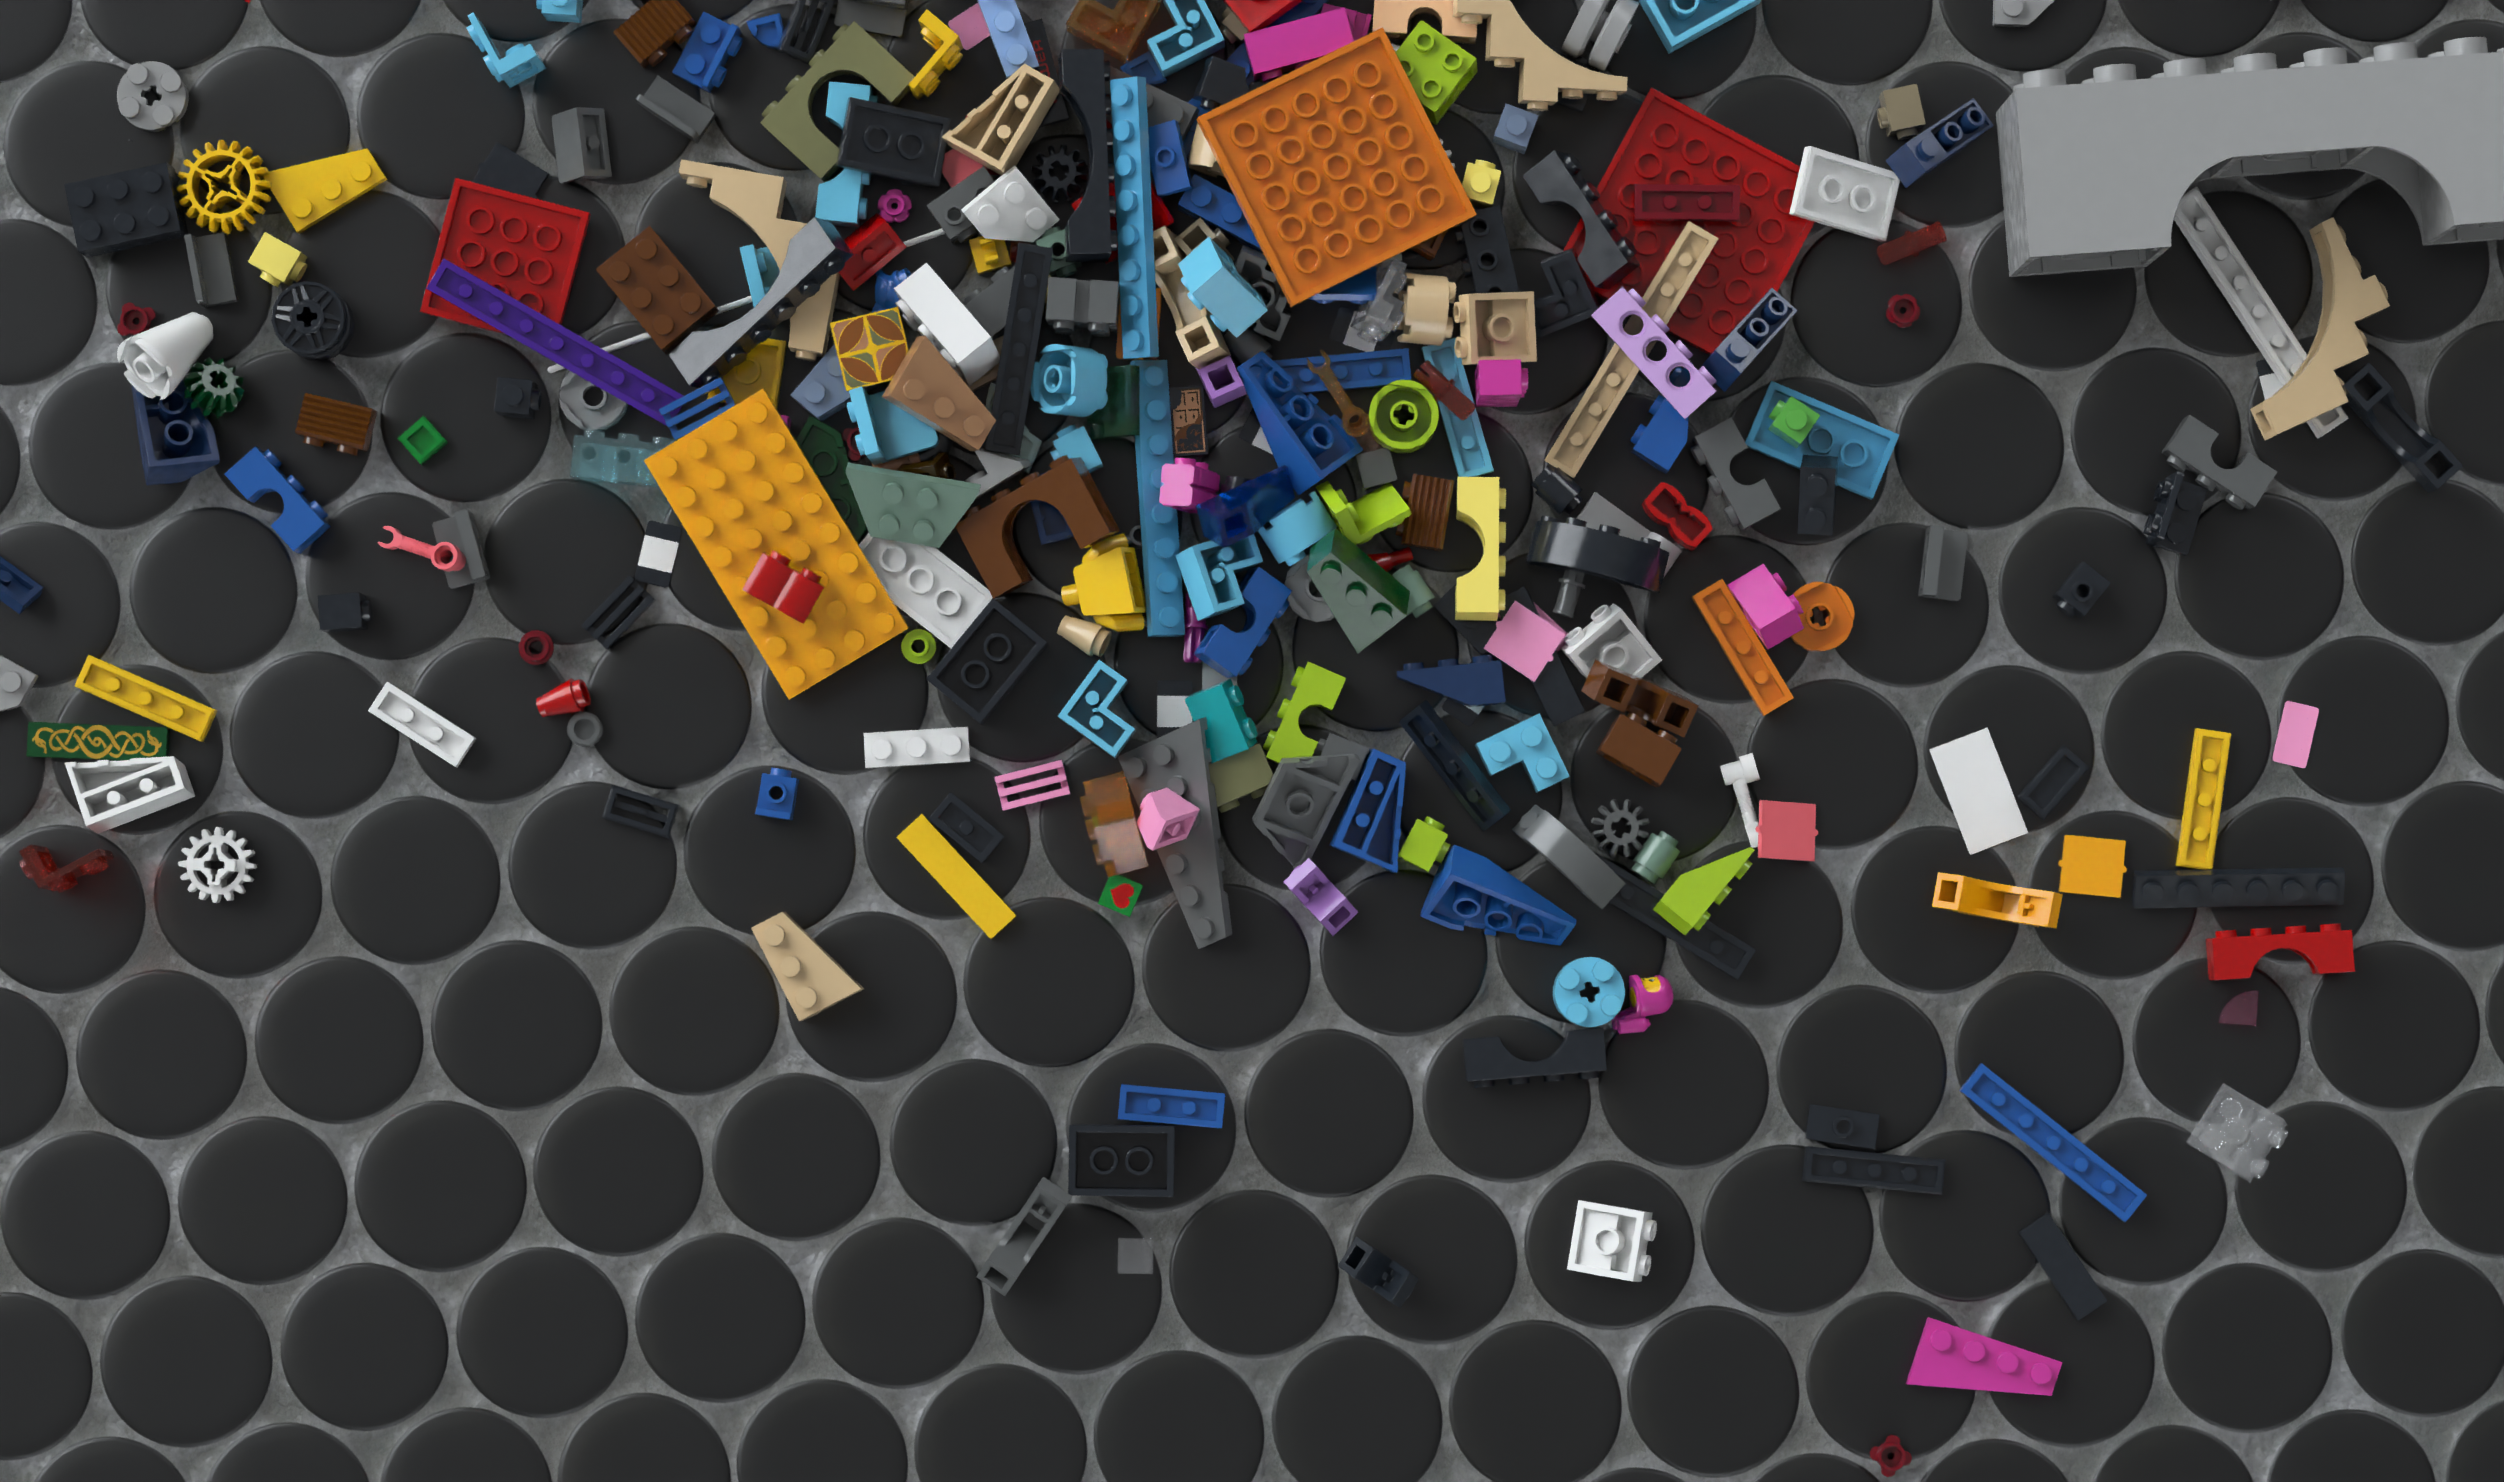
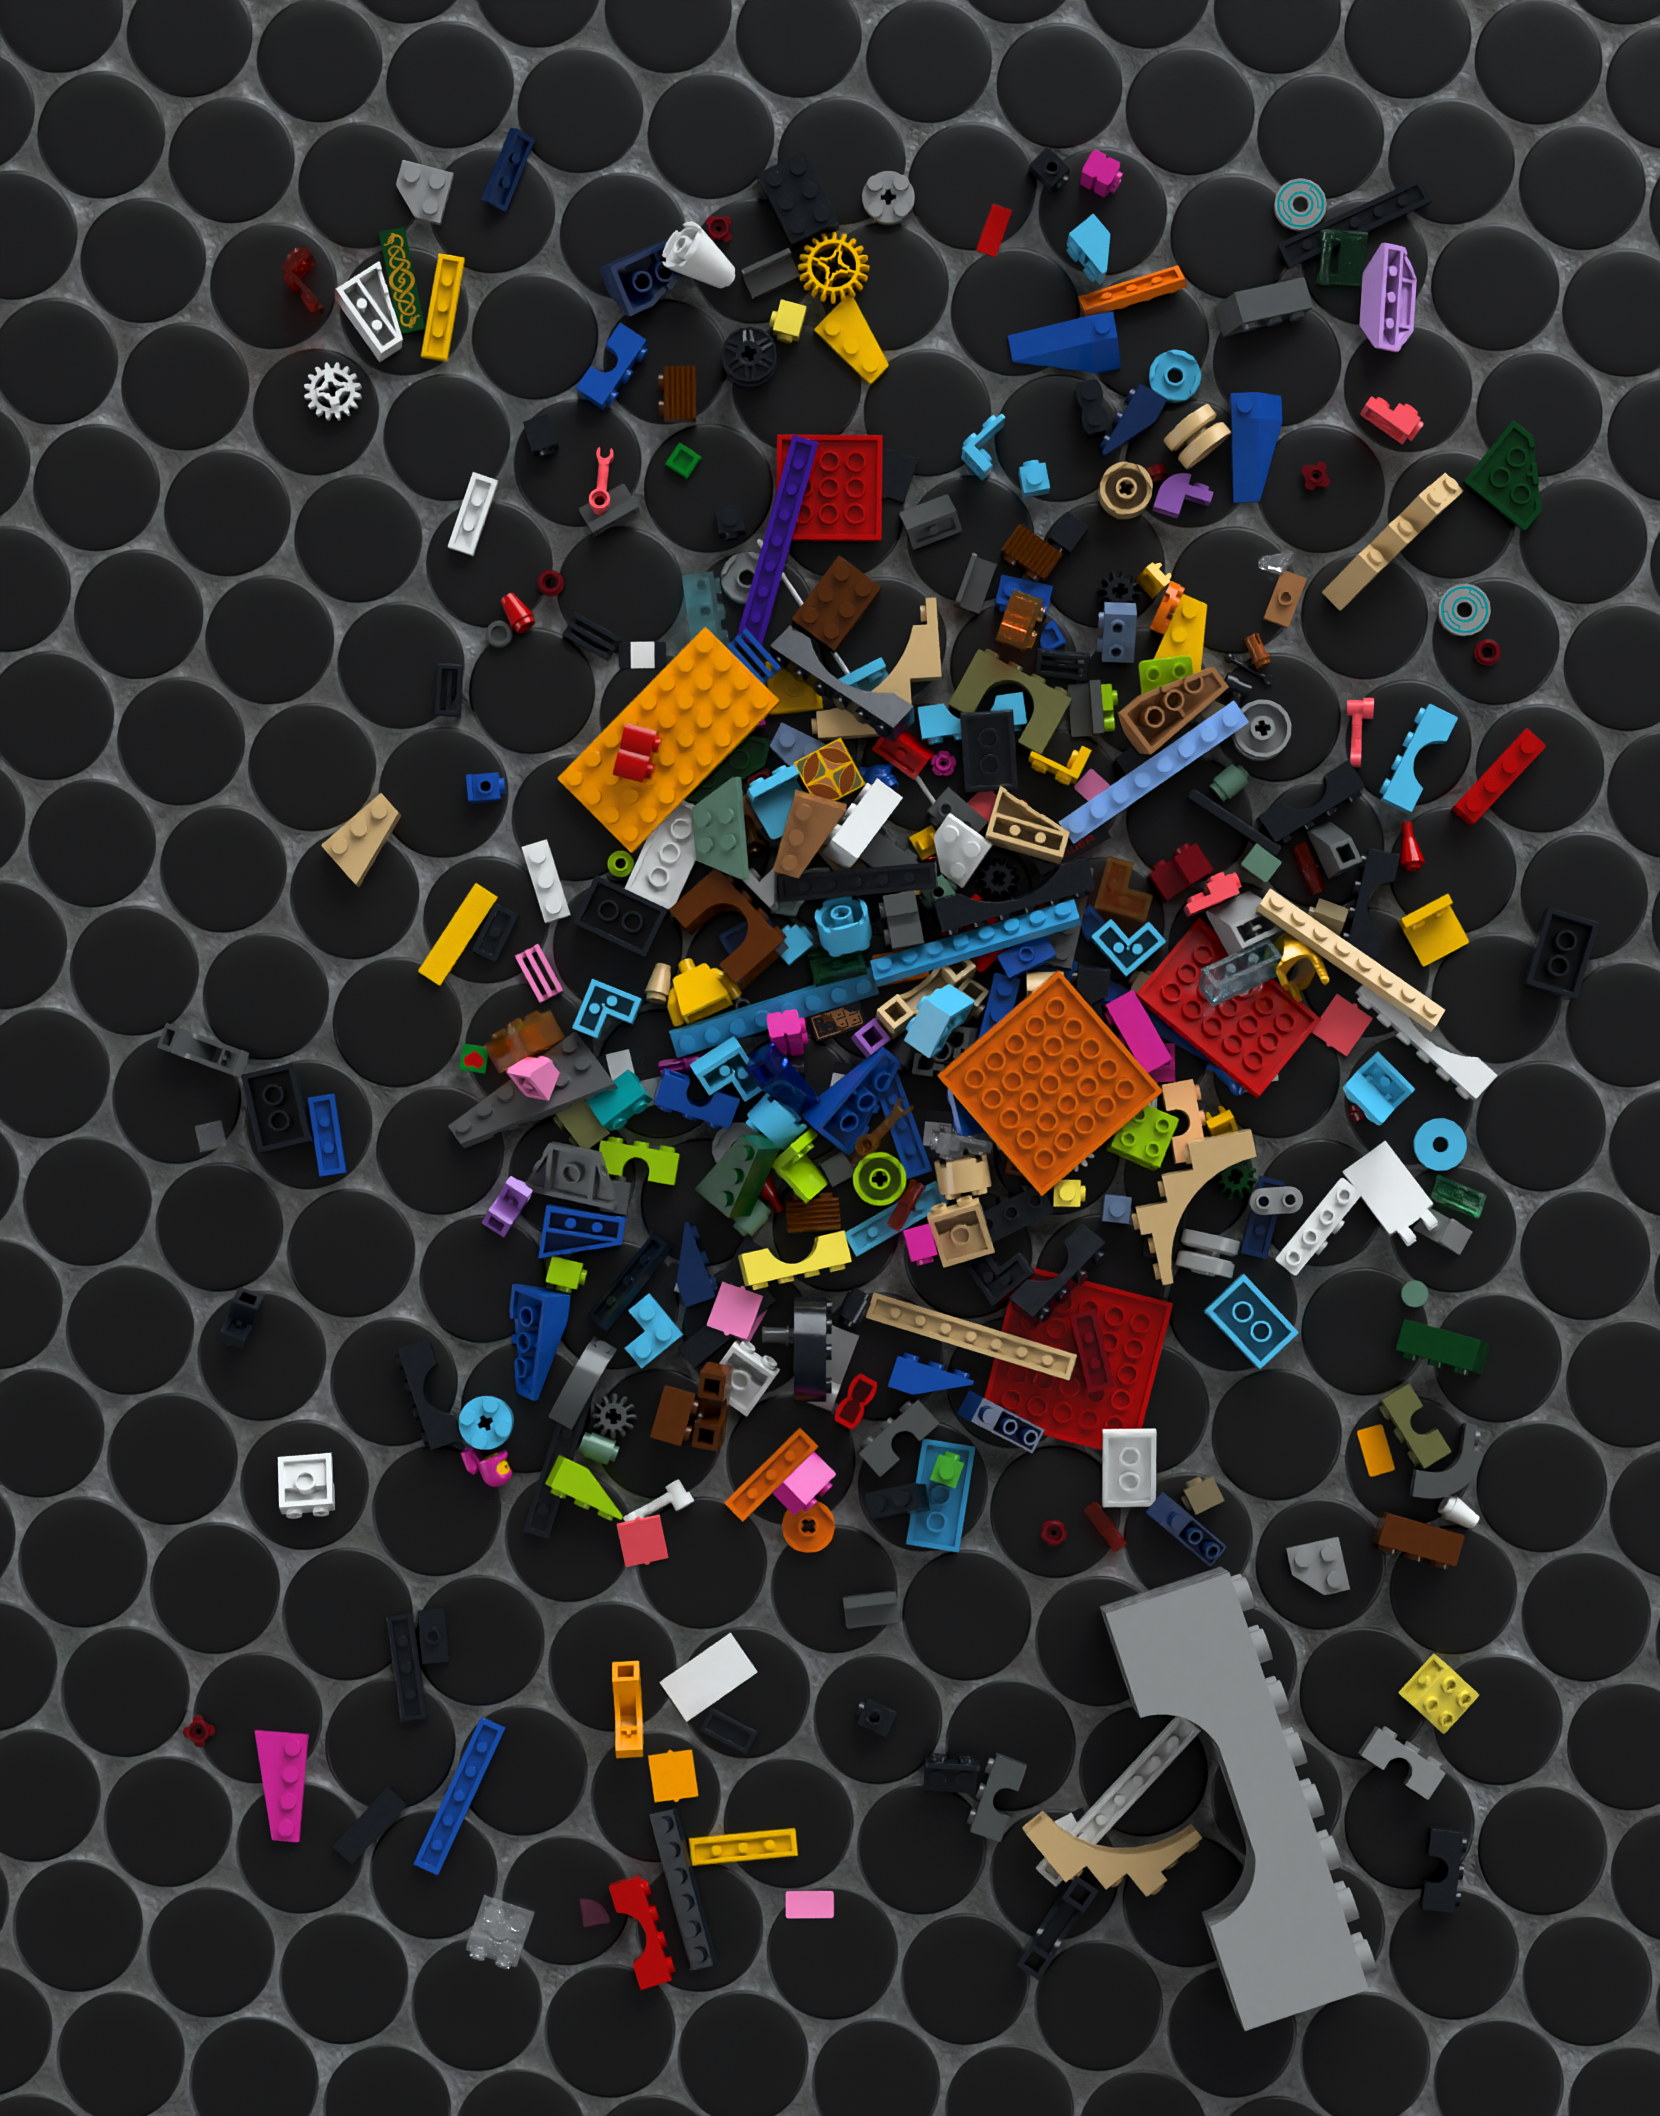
camera: 75 degrees right, 0 degrees up
(213, 387) = (682, 308): dark green gear -> none
(740, 62) = (1019, 621): none -> clear orange brick
(1611, 318) = (987, 1315): lavender brick -> none

